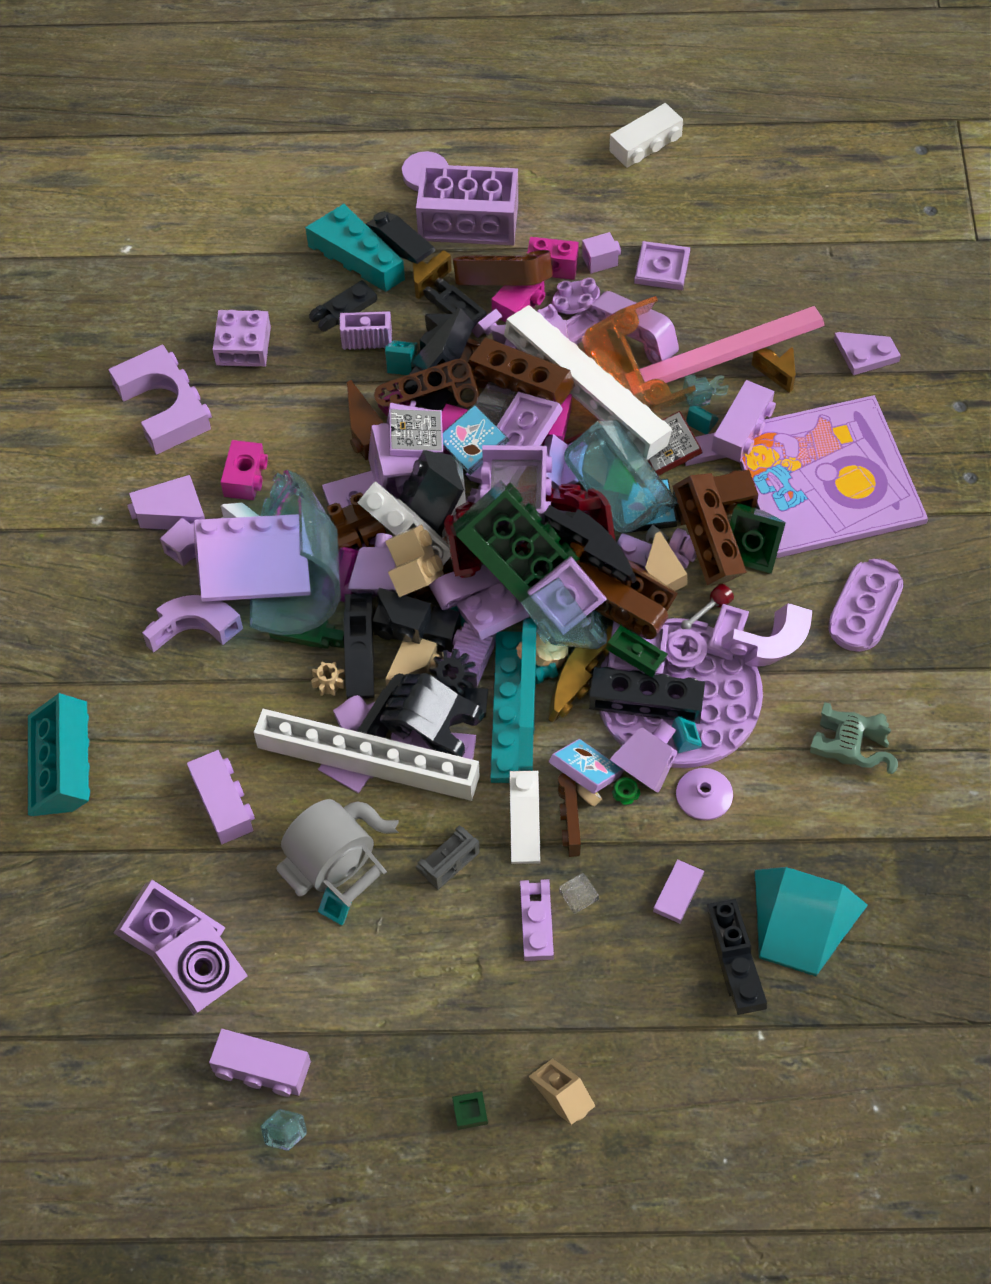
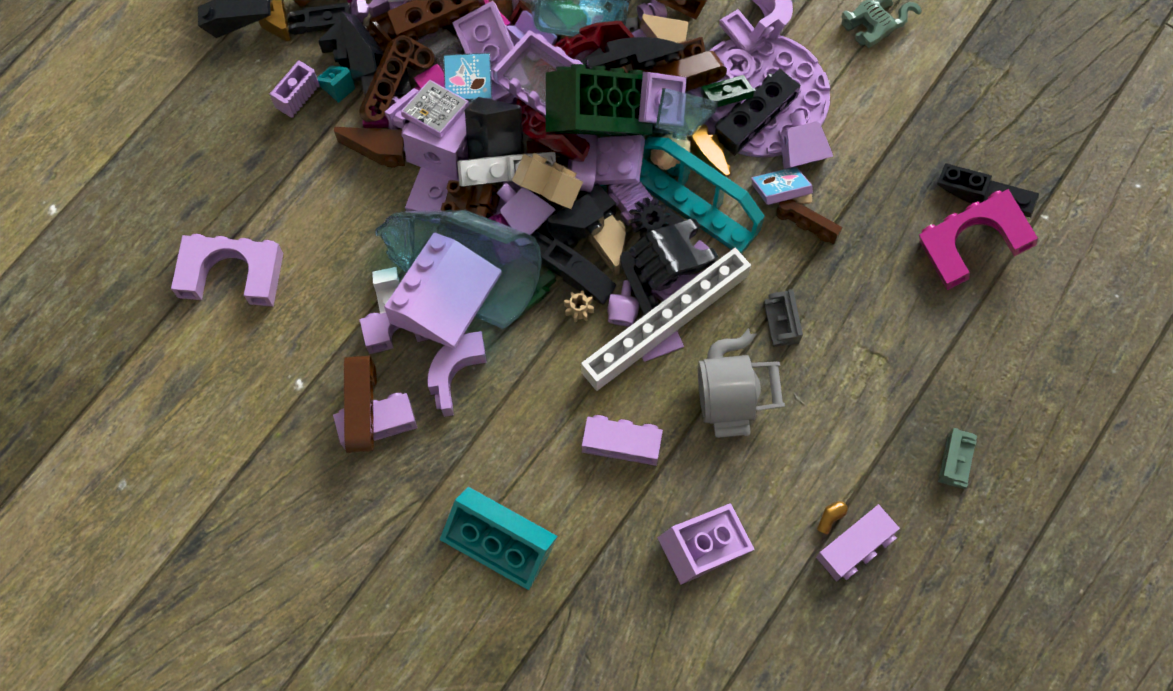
camera: 55 degrees left, 10 degrees up
(100, 594) = (390, 417): none -> lavender brick
(101, 564) = (358, 403): none -> reddish brown beam
(166, 504) = (335, 323): lavender slope -> none
(198, 944) = (764, 536): lavender brick -> none
(241, 338) = (224, 177): lavender brick -> none
(241, 457) = (353, 263): dark pink brick -> none
(275, 1022) = (831, 514): none -> pearl gold arm
(283, 1129) = (917, 559): clear light blue slope -> none
(333, 907) = (768, 419): teal slope -> none
(349, 301) = (253, 90): black hinge -> none
(351, 242) = (210, 47): teal wedge -> none
(416, 1104) = (957, 458): none -> sand green hinge
(470, 1110) = (985, 426): dark green plate -> none
(524, 817) = (788, 249): white slope -> none
(536, 921) = (870, 294): lavender plate -> none
(563, 1091) = (1010, 359): tan slope -> none
(578, 893) = (868, 255): clear tile -> none
(629, 785) = (816, 170): green plate -> none
(643, 946) = (997, 212): none -> dark pink arch
(678, 891) = (911, 194): lavender tile -> none
(686, 735) = (809, 109): teal slope -> none
(701, 804) = (845, 139): lavender dish -> none
(719, 595) = (708, 19): hinge -> none
(802, 917) = (981, 136): teal wedge -> none

